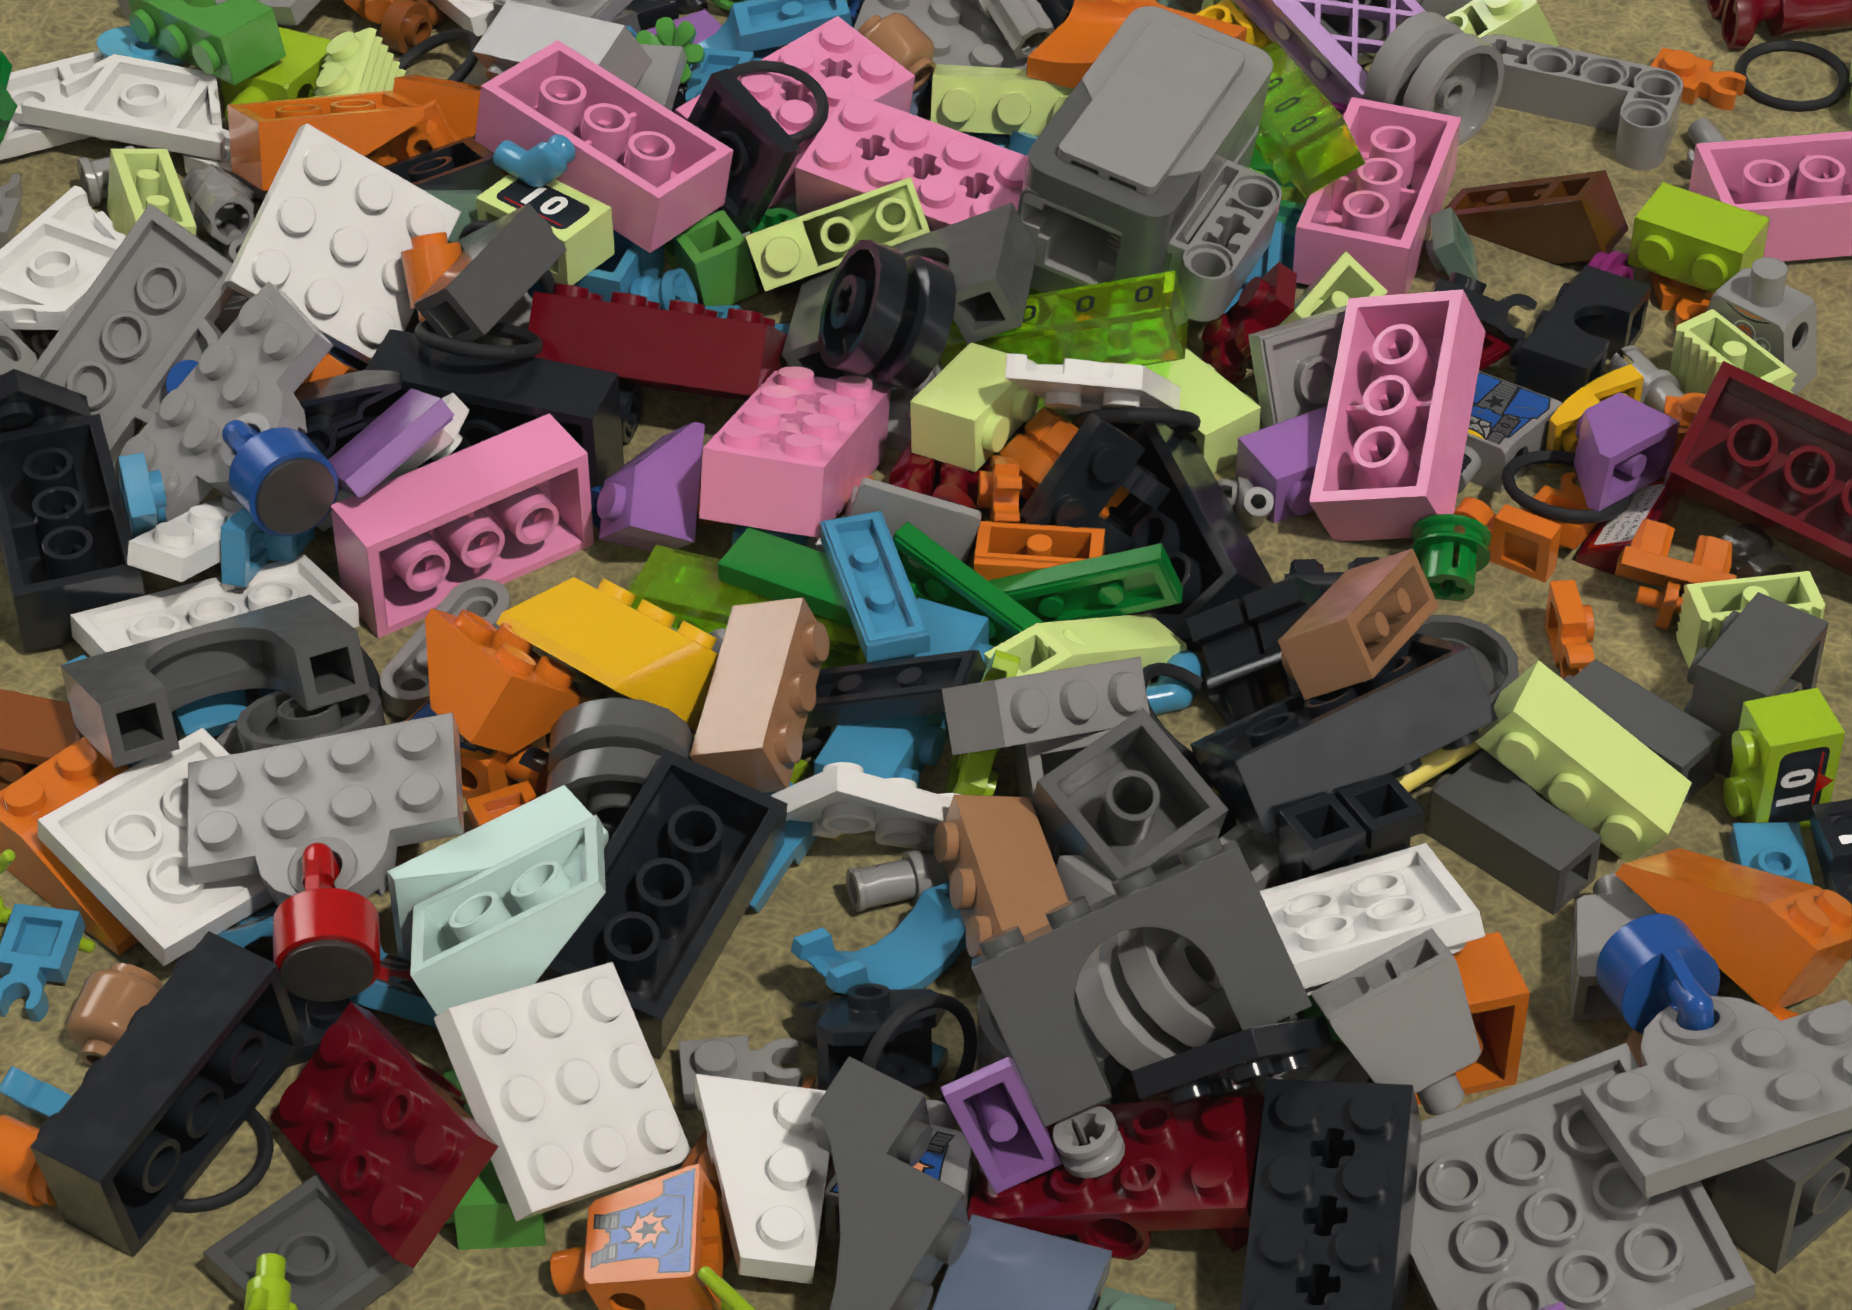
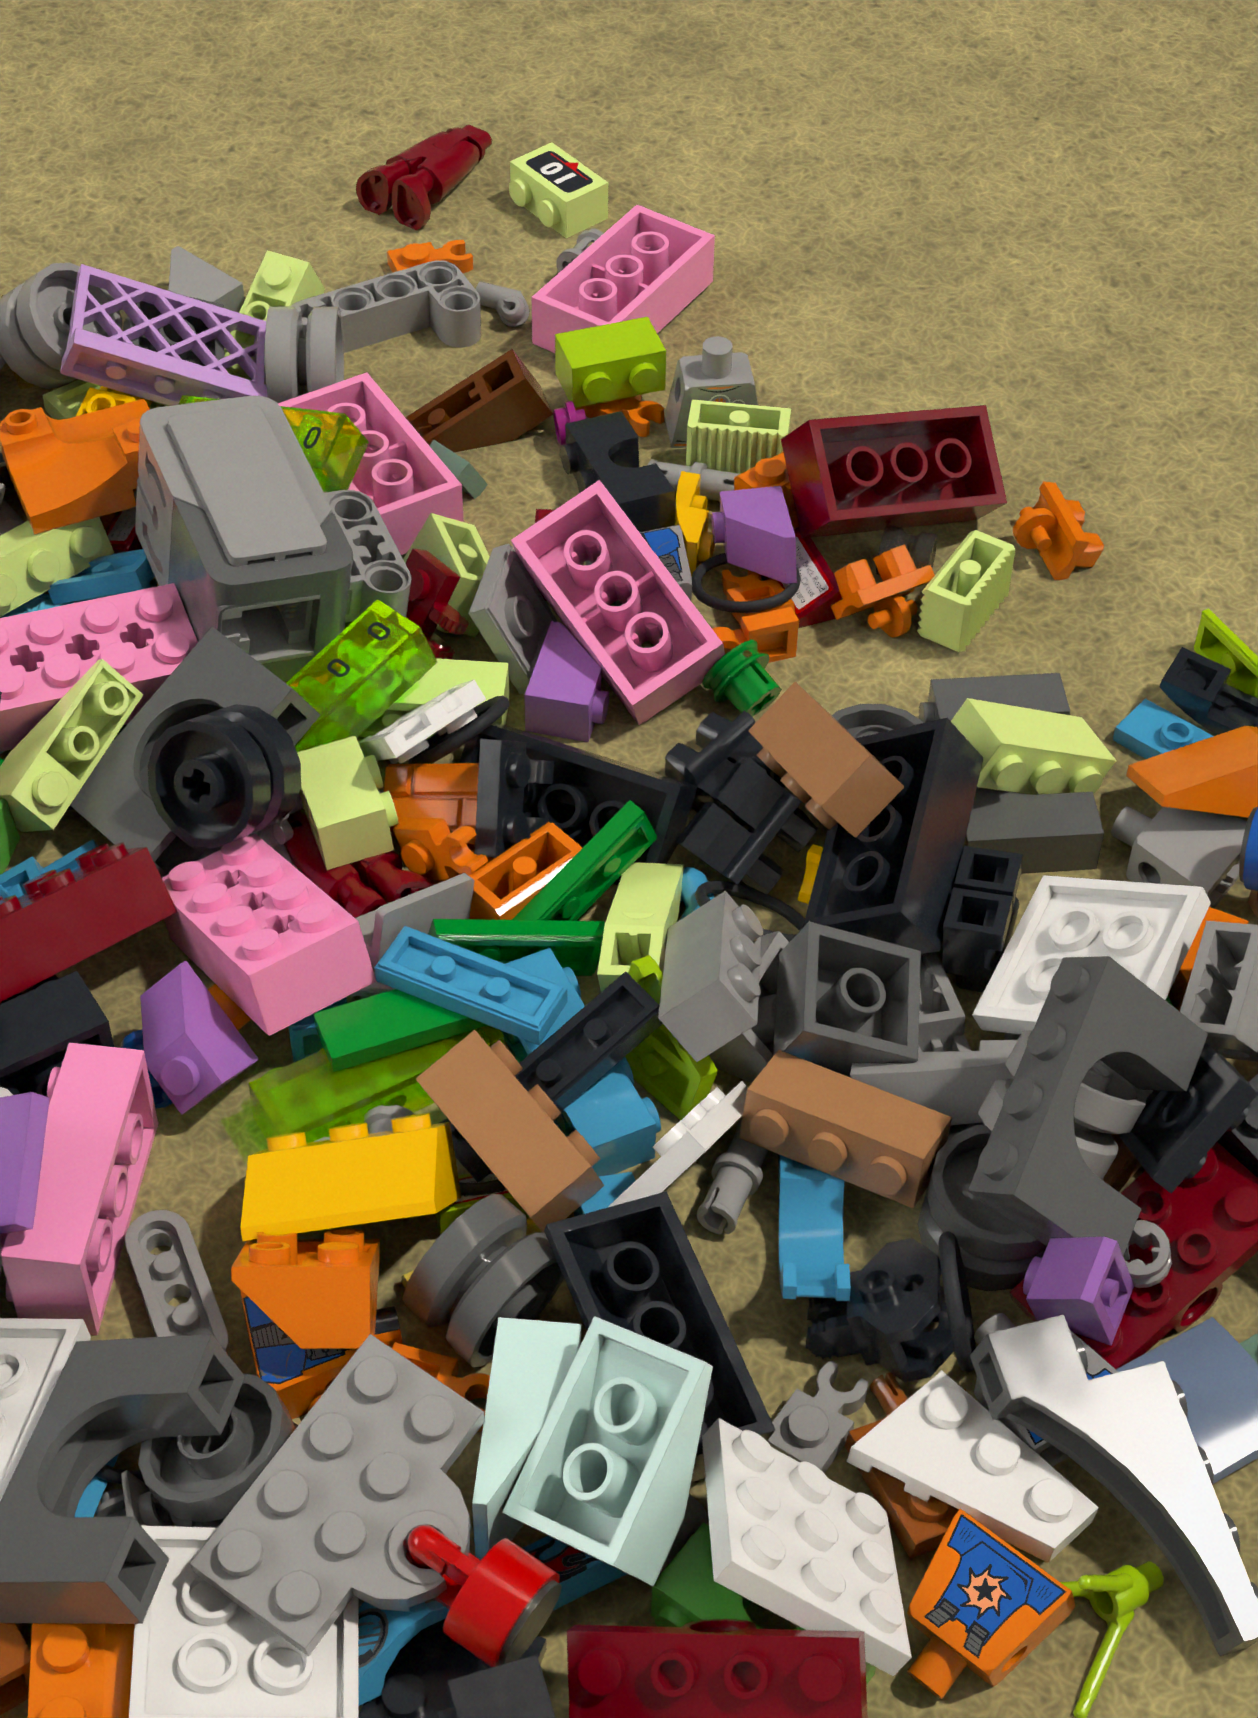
camera: 50 degrees left, 5 degrees up
(1249, 502) = (582, 736): light grey arm -> none
(1488, 310) = (530, 493): black plate -> none
(1569, 628) = (871, 677): orange plate -> none
(1757, 656) = (1037, 621): dark grey brick -> none
(1783, 758) = (1115, 662): lime brick -> none
(1799, 46) = (481, 198): black tyre -> none

